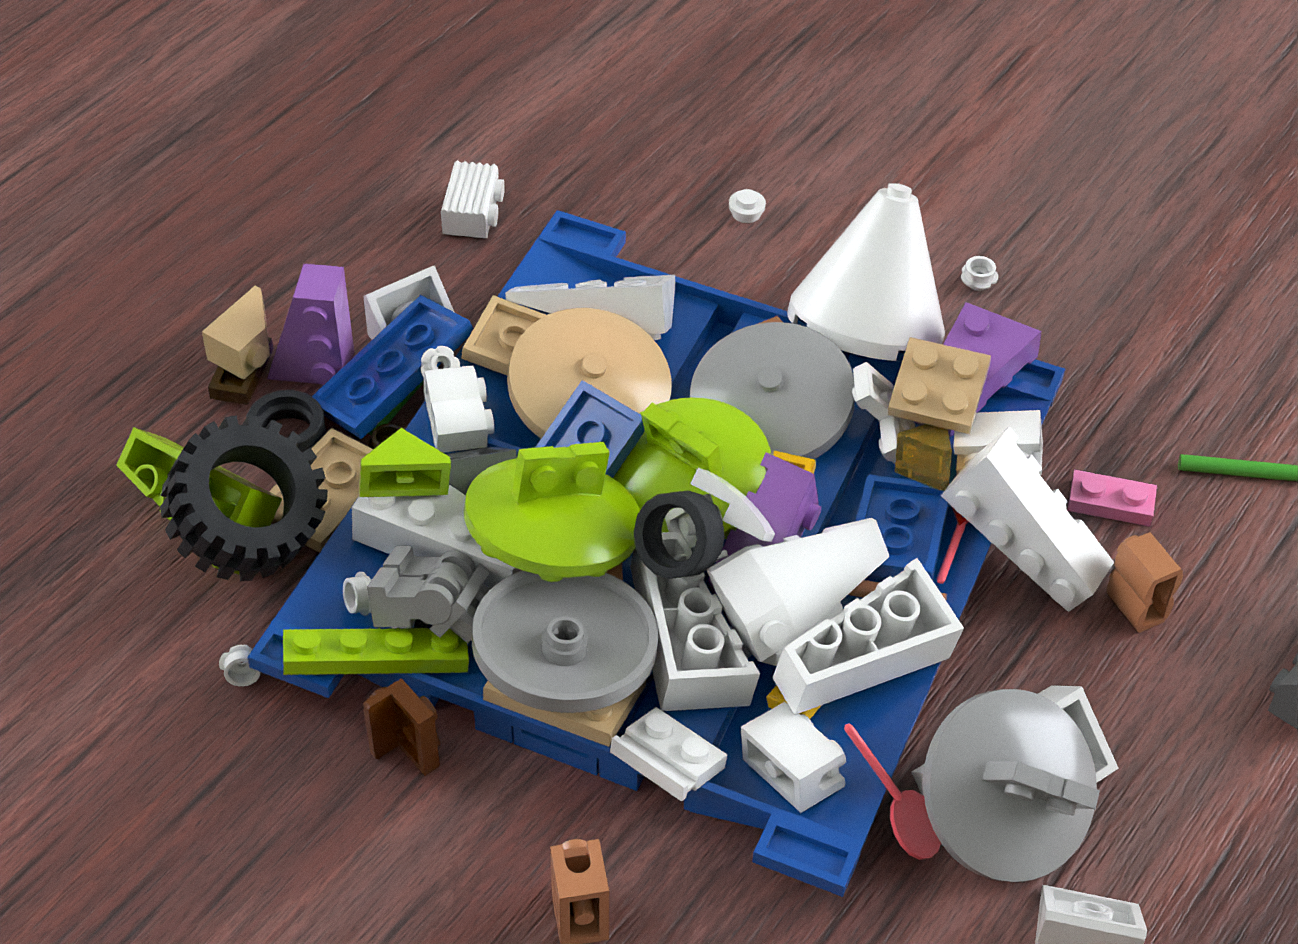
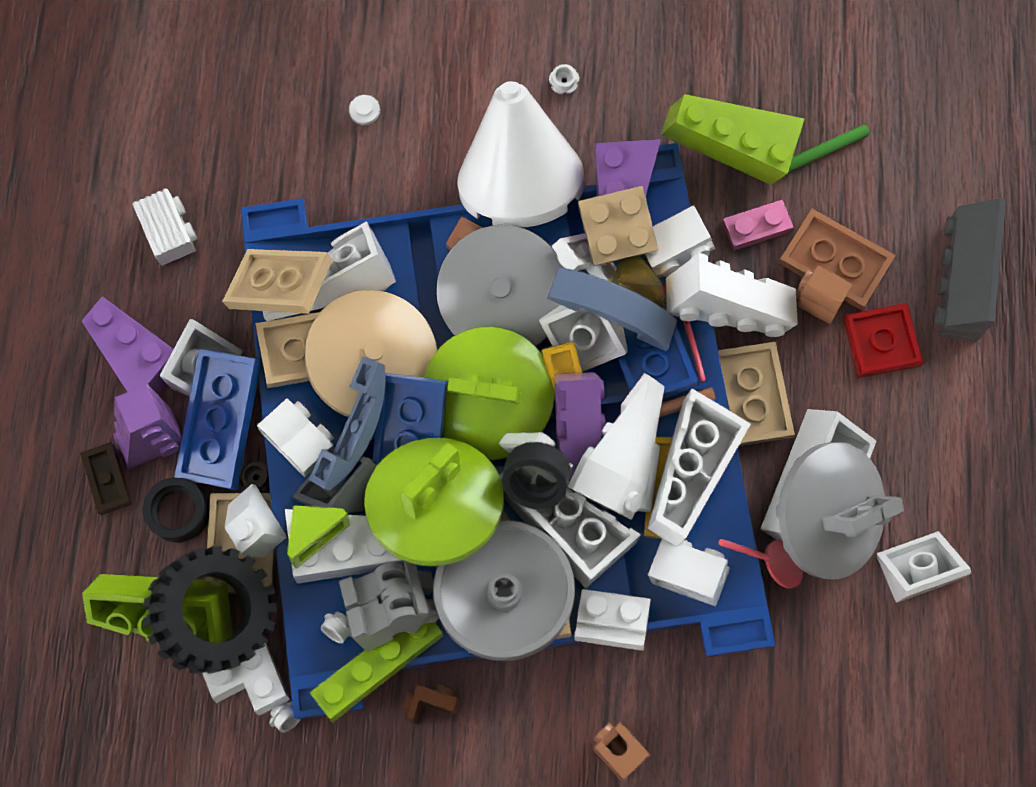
camera: 25 degrees left, 25 degrees up
(239, 336) = (93, 460): tan slope -> none
(239, 605) = (257, 676): none -> white plate
(341, 460) = (253, 524): none -> white slope
(354, 247) = (128, 346): none -> medium lavender wedge
(440, 354) = (251, 406): white plate -> none
(544, 268) = (278, 281): none -> tan plate
(563, 385) = (359, 428): none -> sand blue slope
(741, 511) = (571, 433): white slope -> none
(849, 462) = (594, 337): none -> white slope
(888, 444) = (613, 303): none -> sand blue slope
(997, 642) = (757, 392): none -> tan plate
(1136, 390) = (736, 135): none -> lime wedge
(1193, 677) = (883, 340): none -> red tile
(1211, 582) = (839, 251): none -> nougat plate

